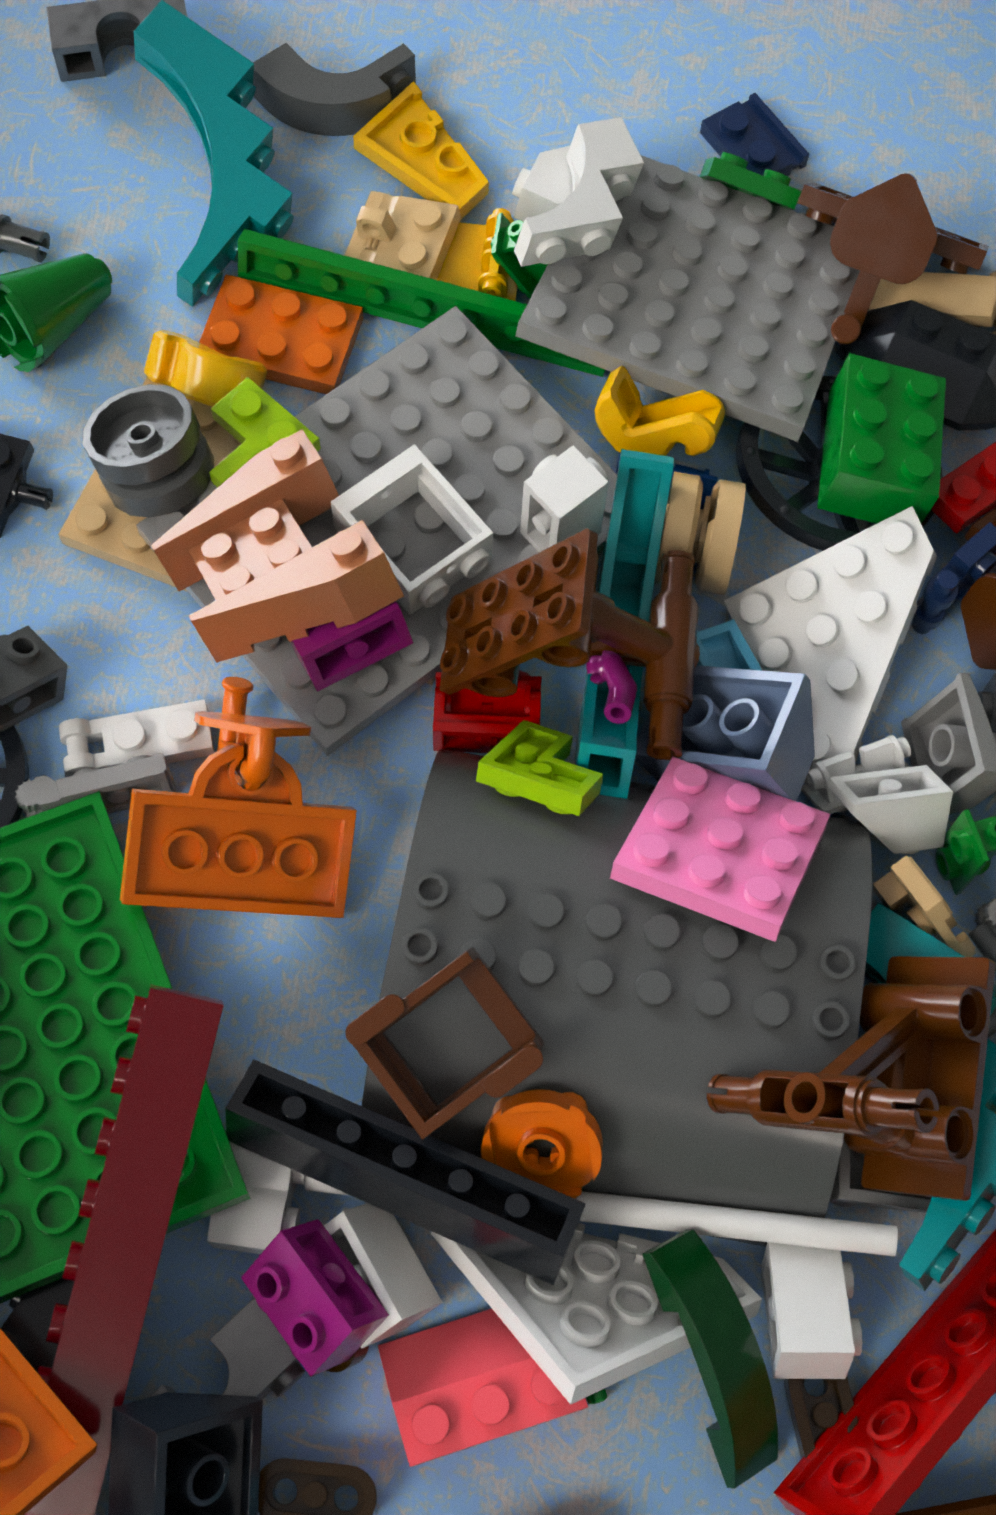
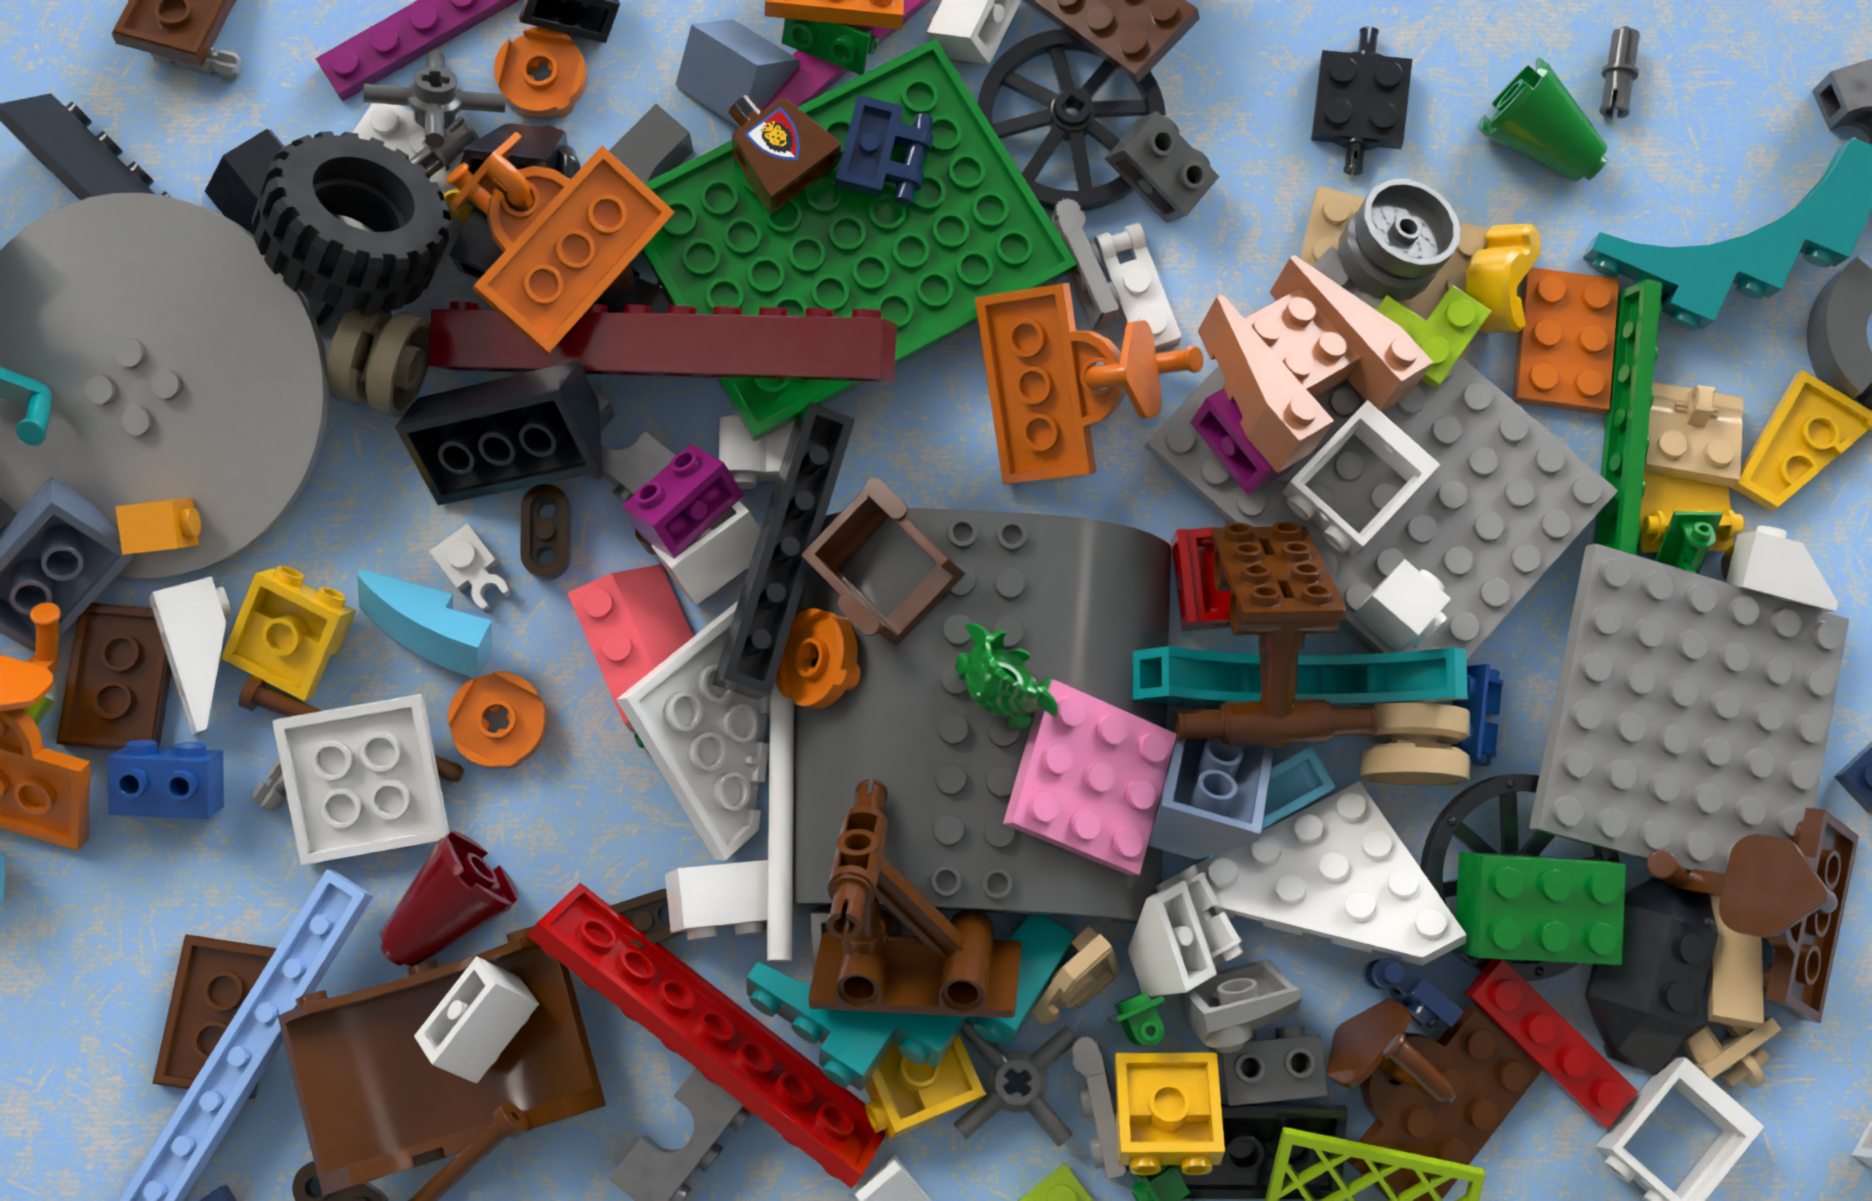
camera: 80 degrees right, 10 degrees up
(533, 767) = (1140, 609): lime plate -> none
(603, 171) = (1723, 593): white arch -> none
(614, 917) = (1000, 679): none -> green hair
(622, 687) = (1237, 678): magenta arm -> none
(656, 427) = (1520, 692): yellow animal -> none
(725, 1352) = (679, 824): dark green slope -> none
(732, 173) = (1835, 745): green plate -> none

